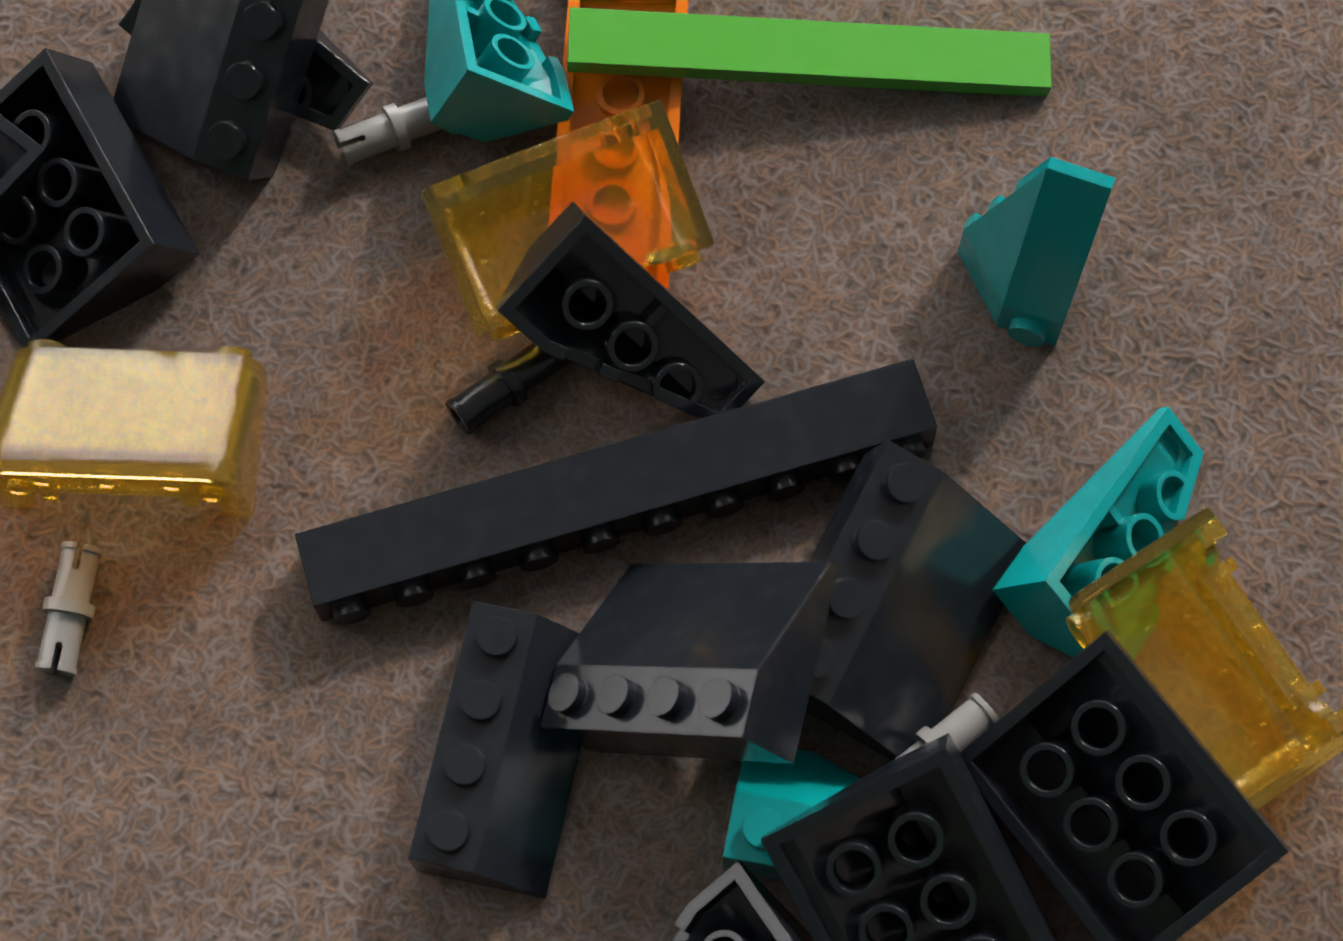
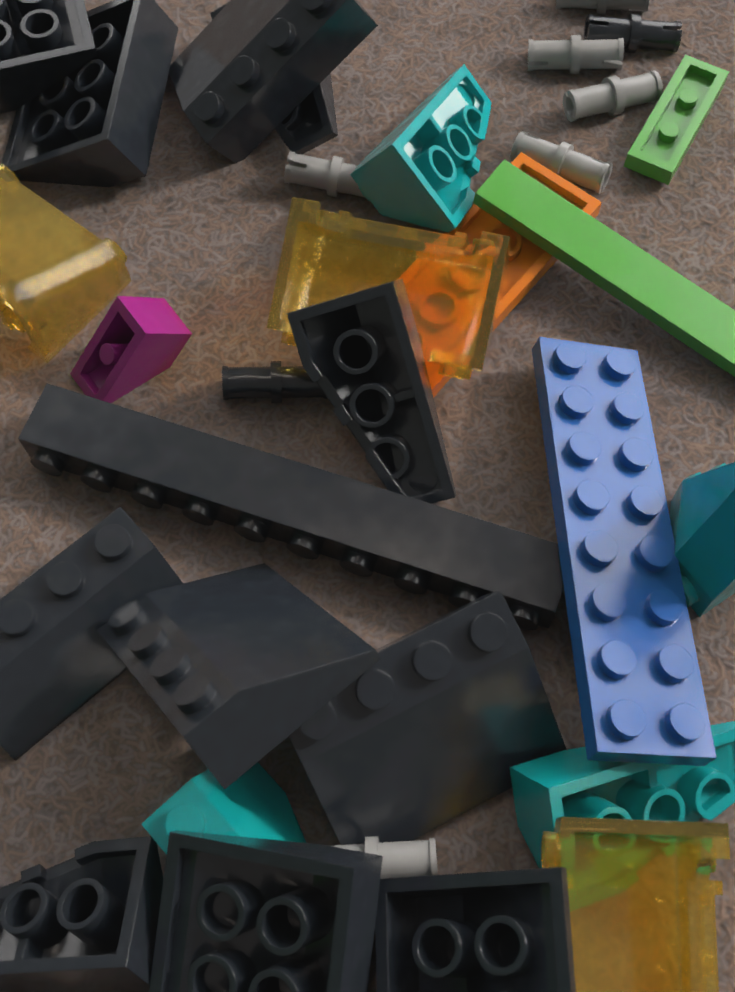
camera: 35 degrees right, 5 degrees down
(337, 447) = (130, 347): none -> magenta slope
(945, 328) = (618, 560): none -> plate

